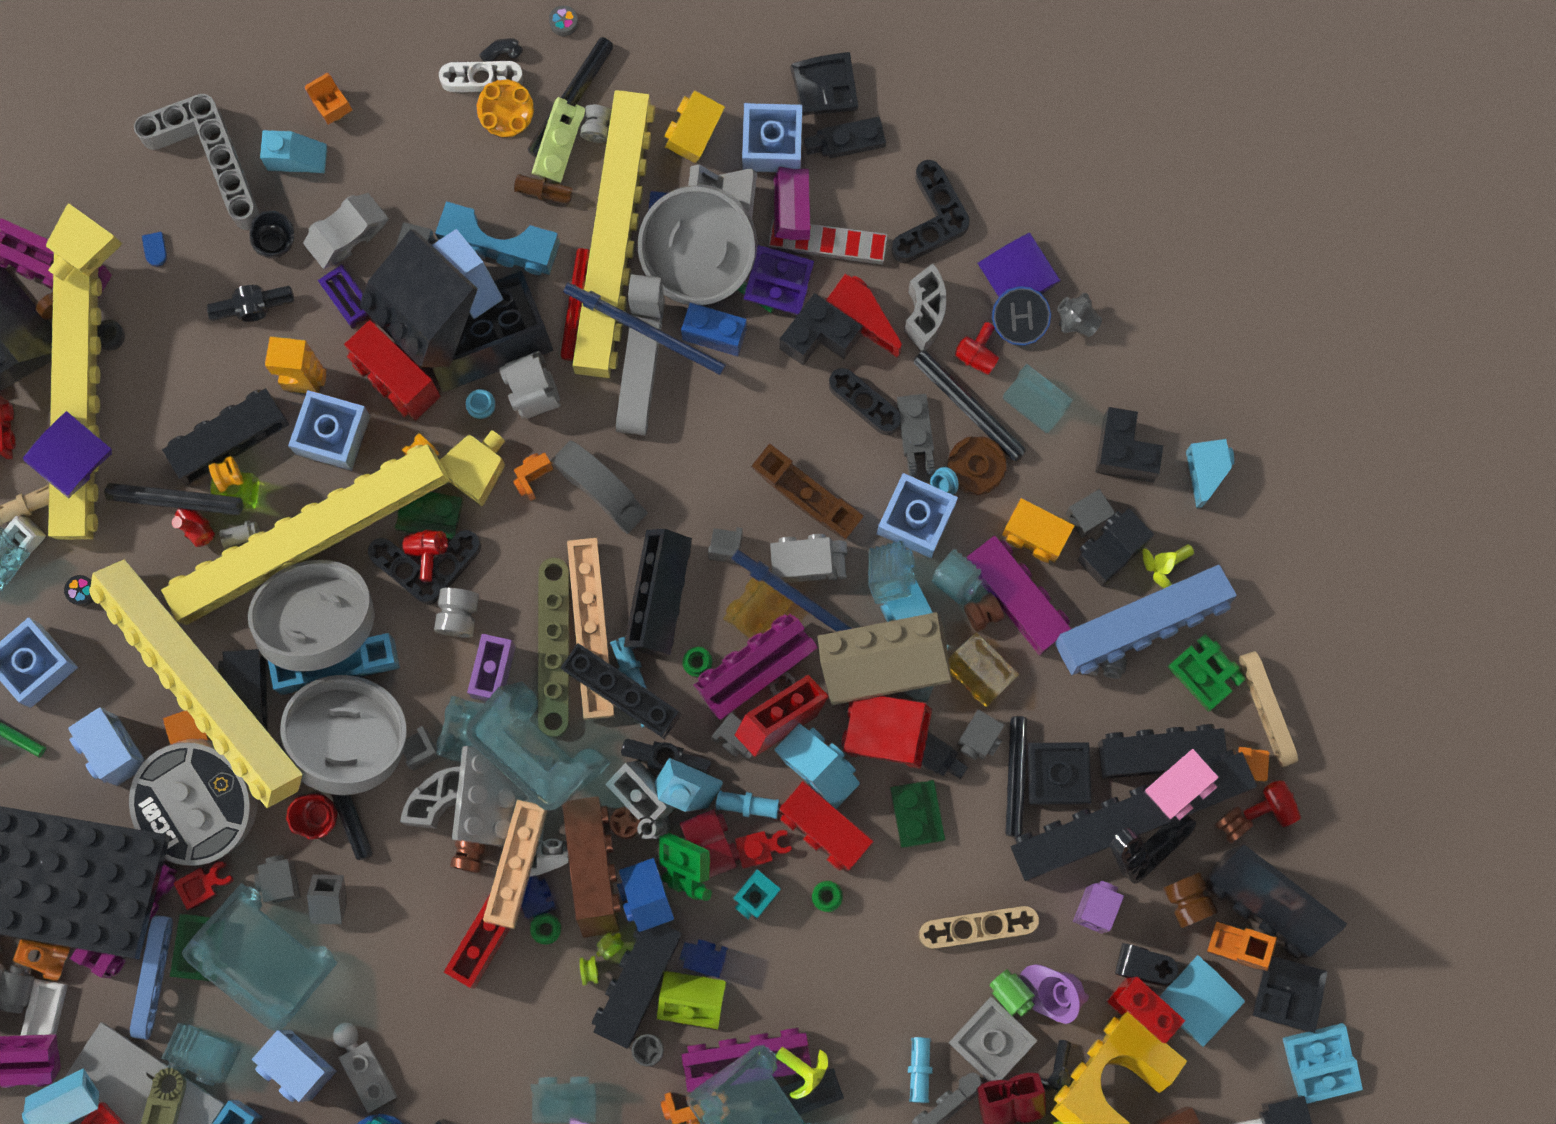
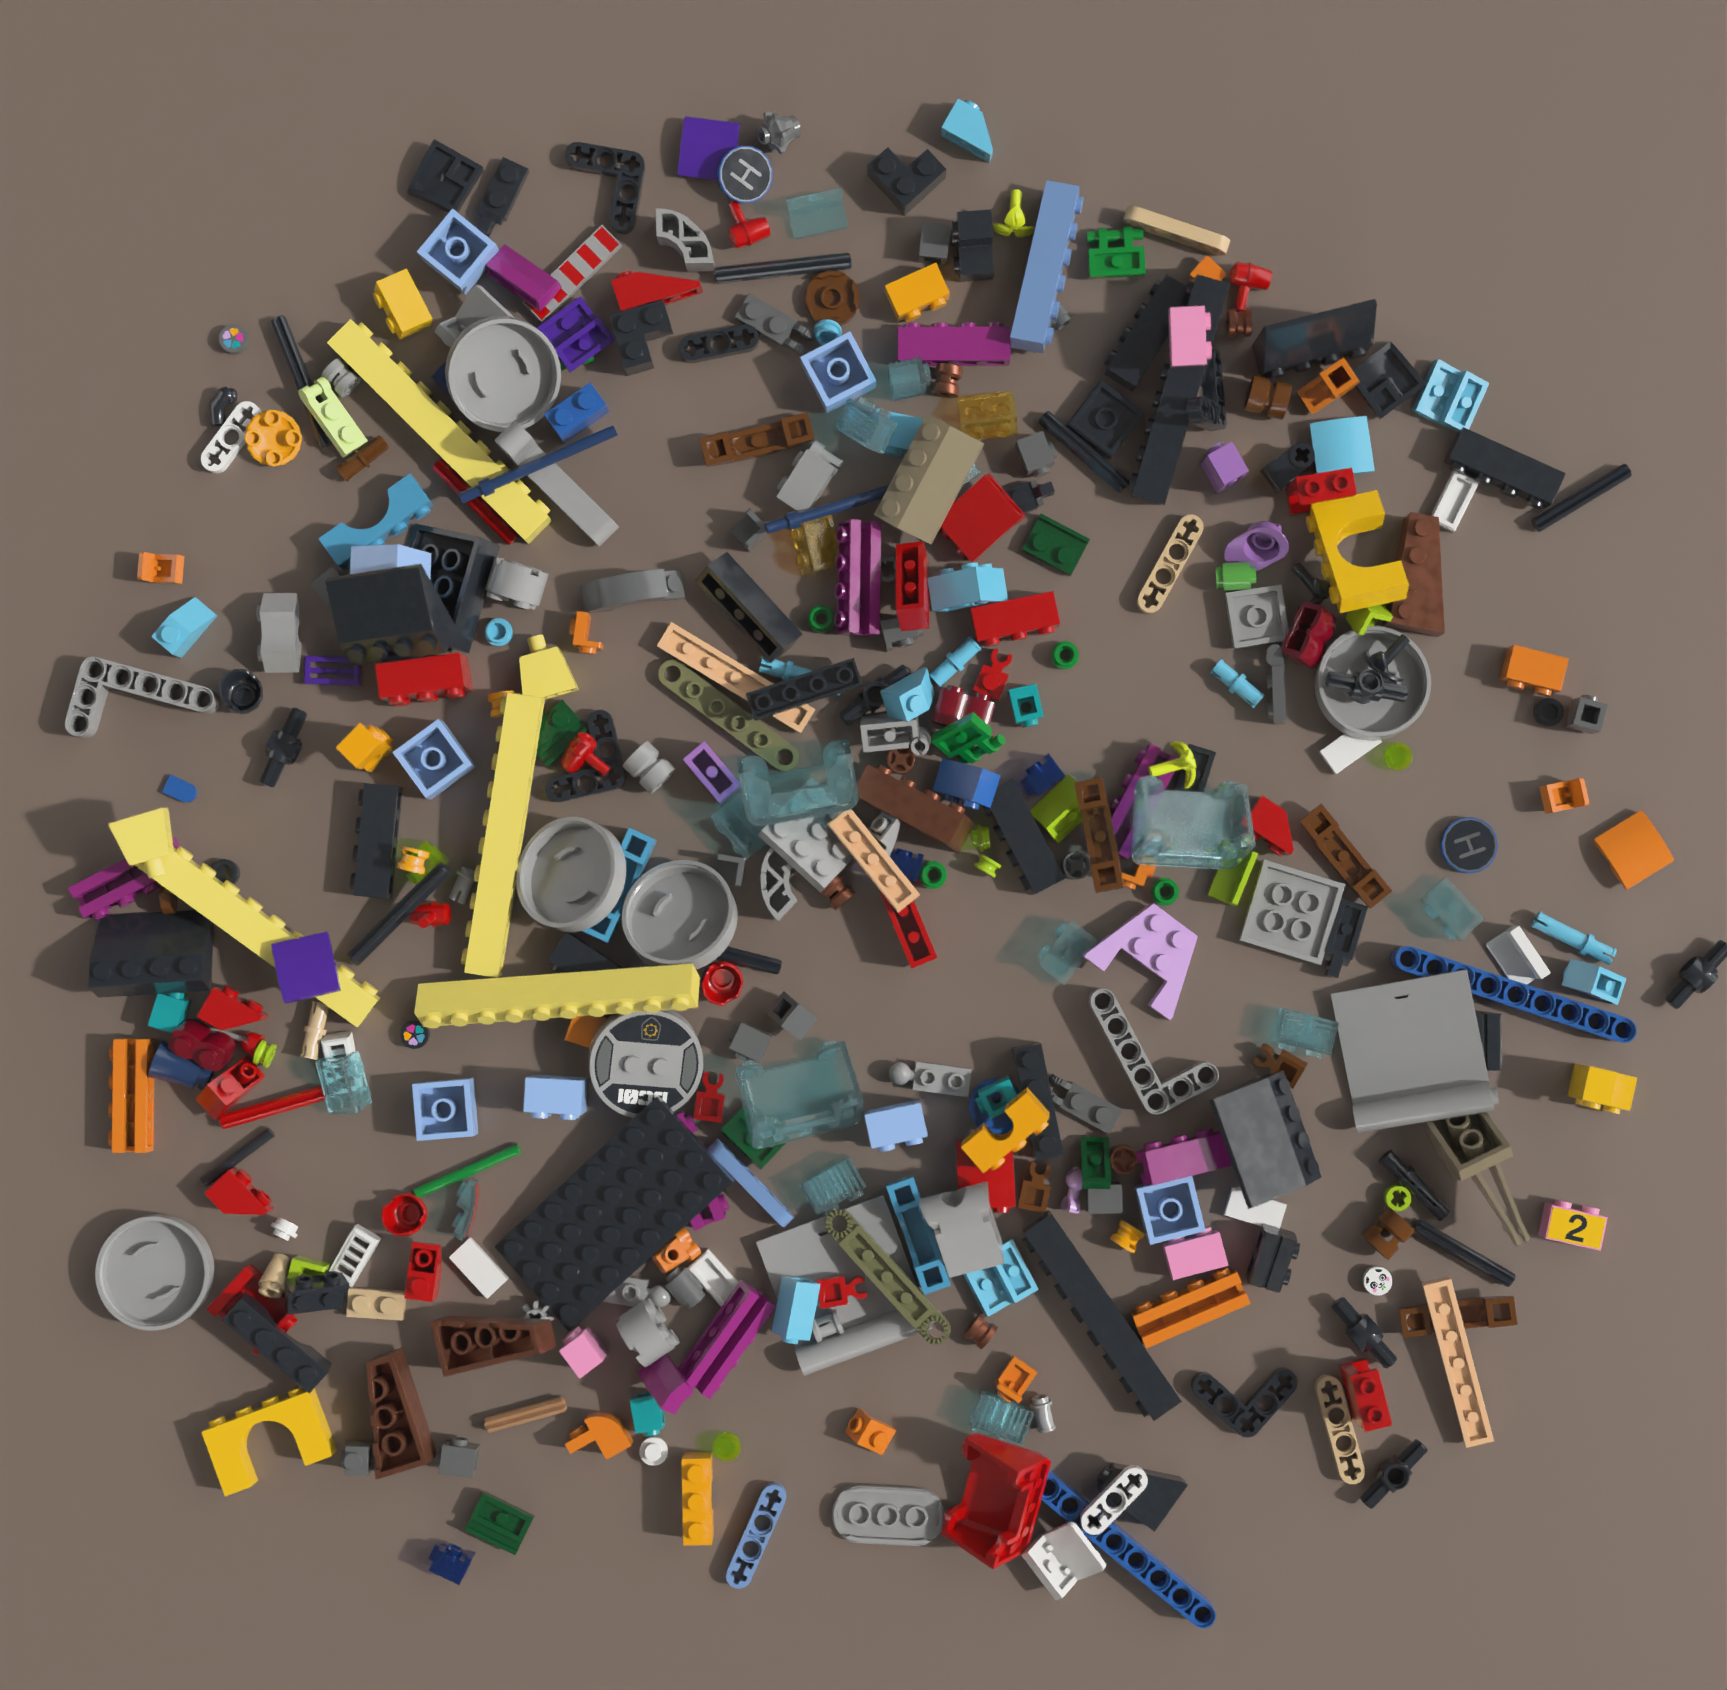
camera: 50 degrees left, 10 degrees up
(687, 1050) = (1099, 835): none -> reddish brown slope

